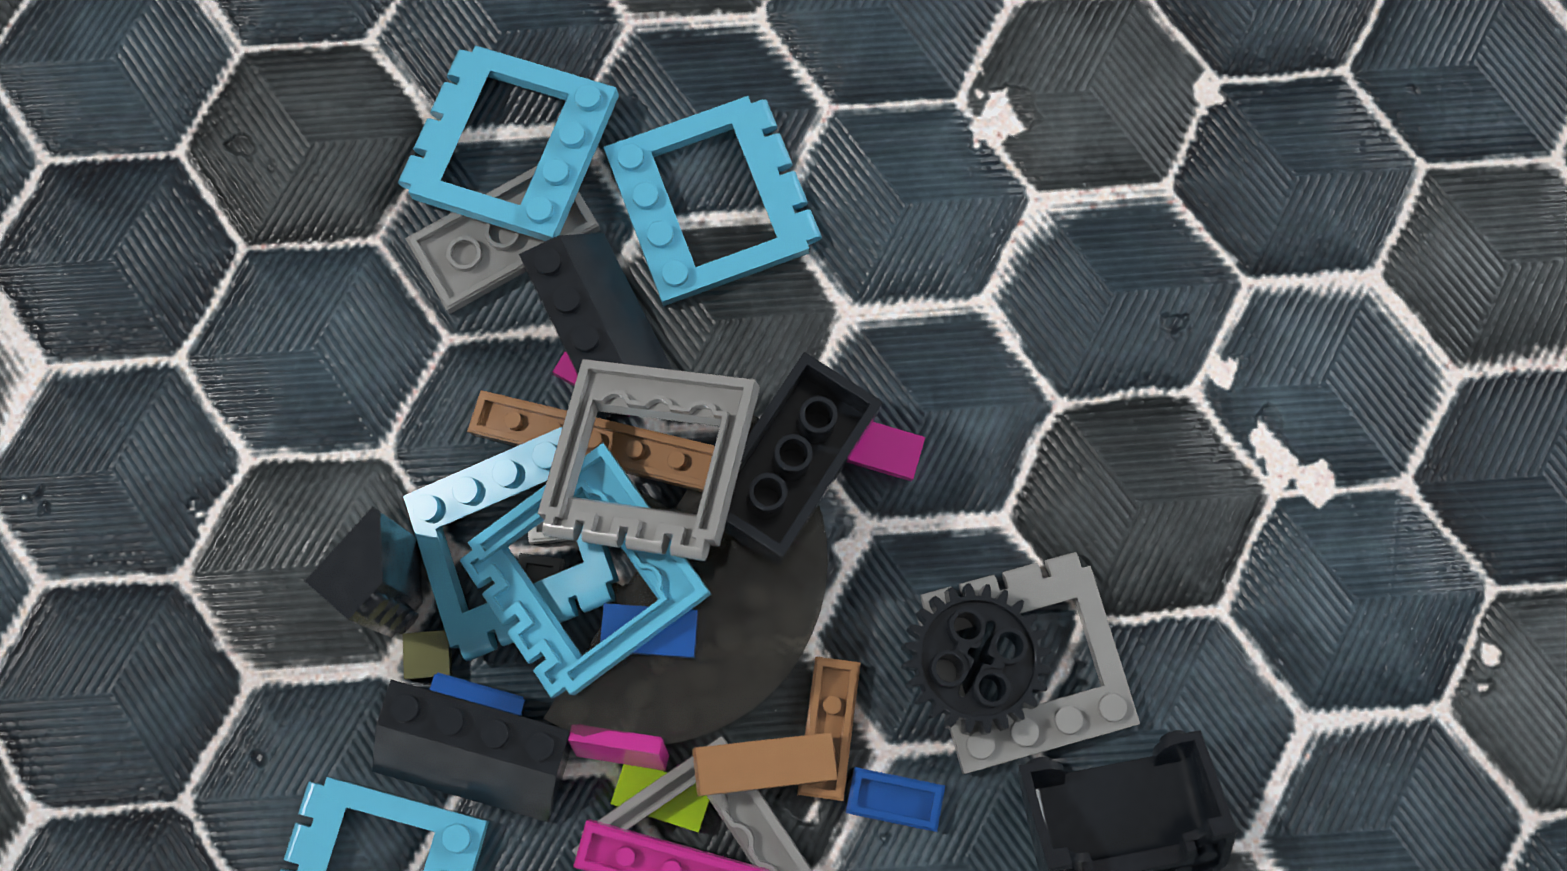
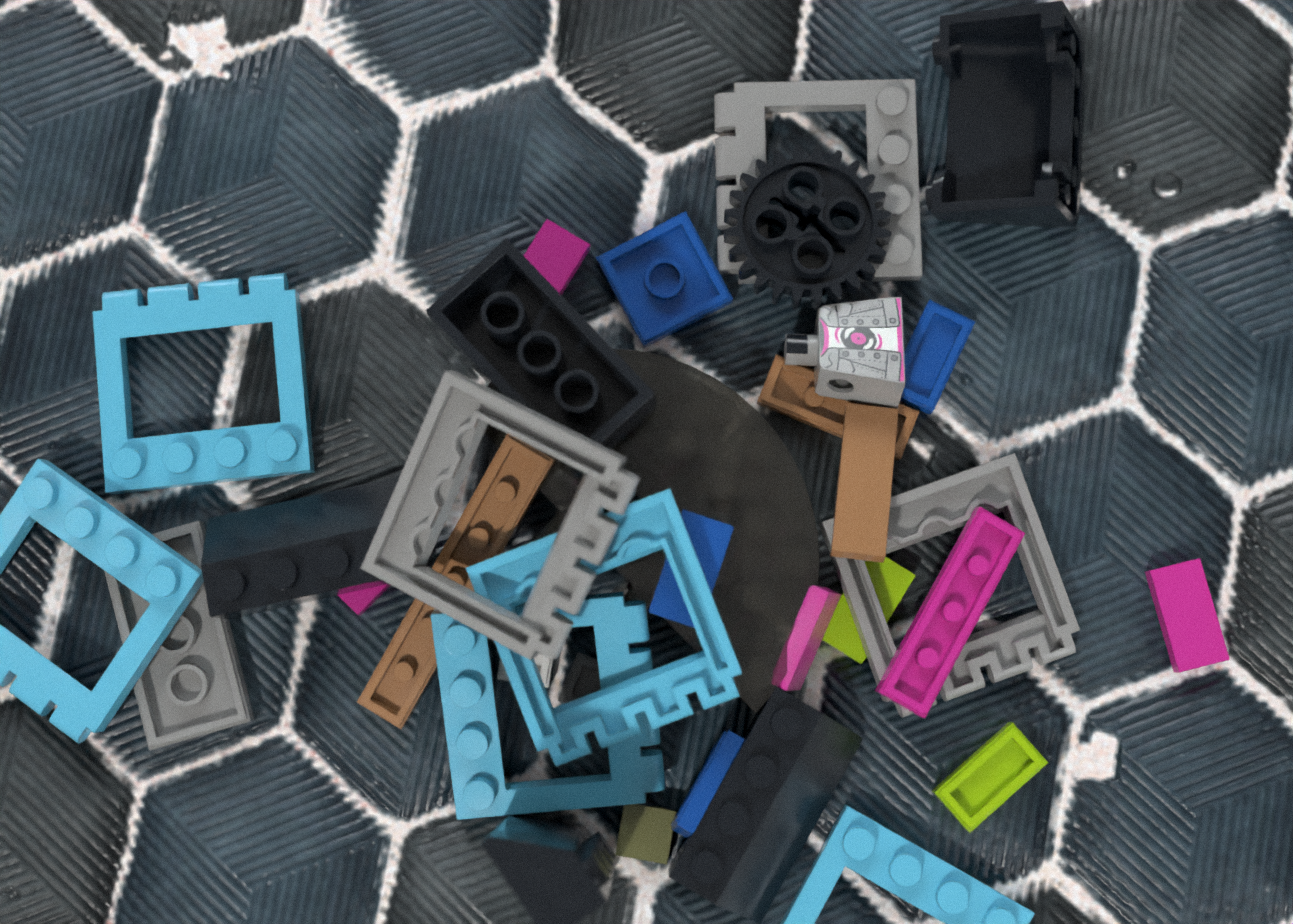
camera: 70 degrees left, 5 degrees up
(878, 727) = (855, 351): none -> light grey torso
(901, 550) = (664, 279): none -> blue tile

